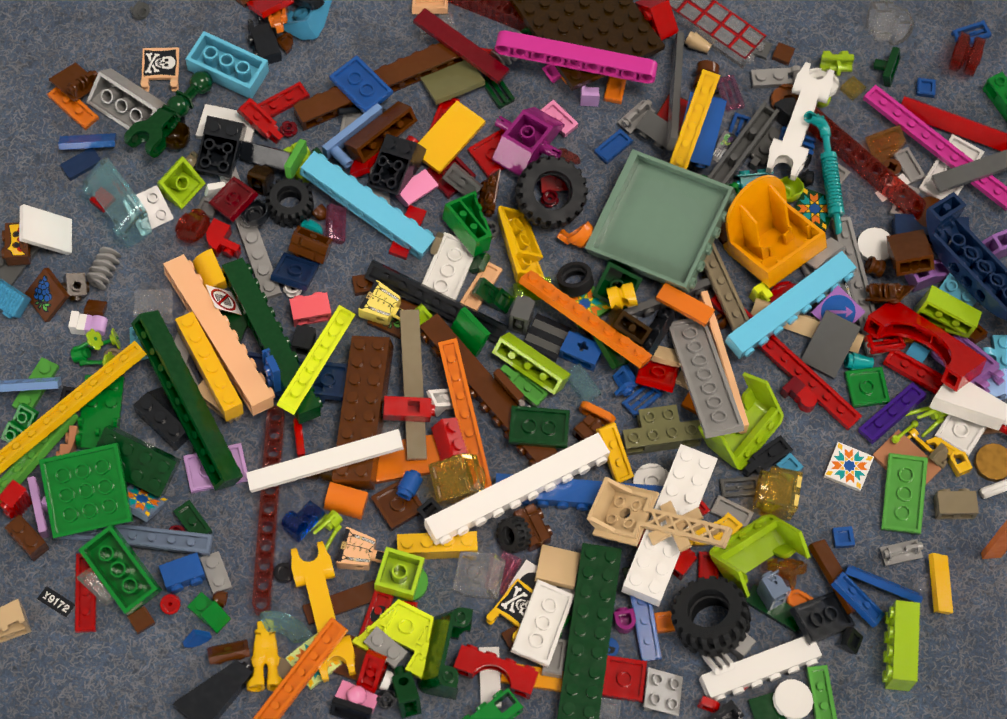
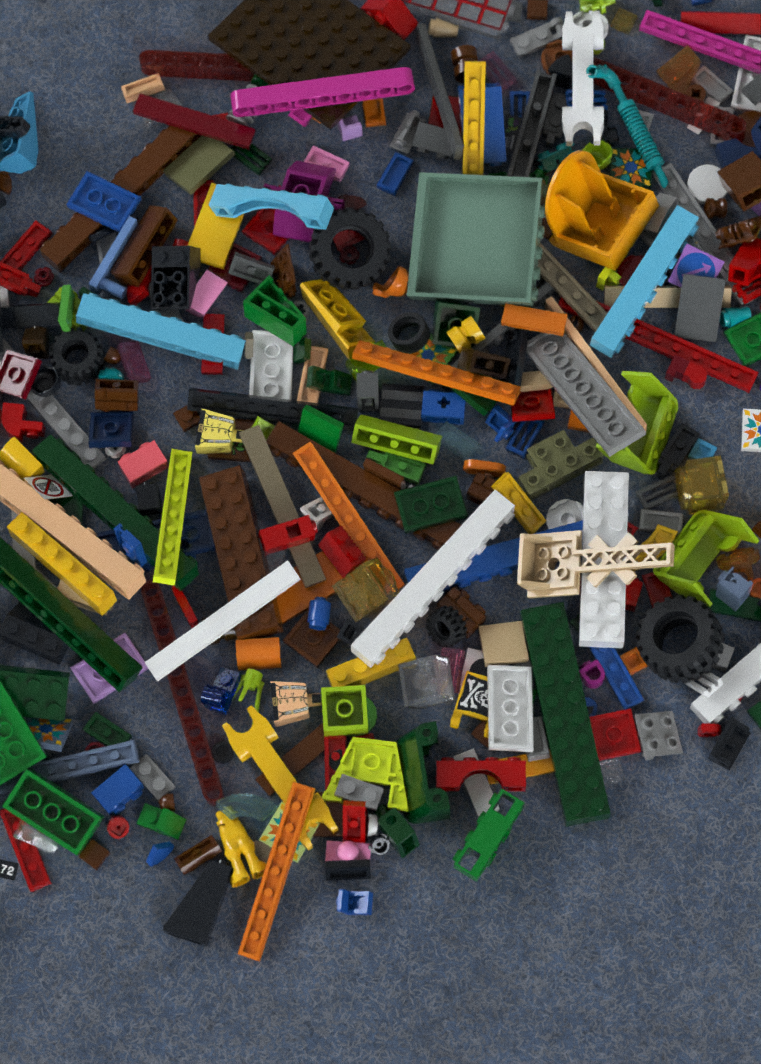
camera: 10 degrees left, 5 degrees up
(469, 120) = (234, 201): none -> medium azure arch

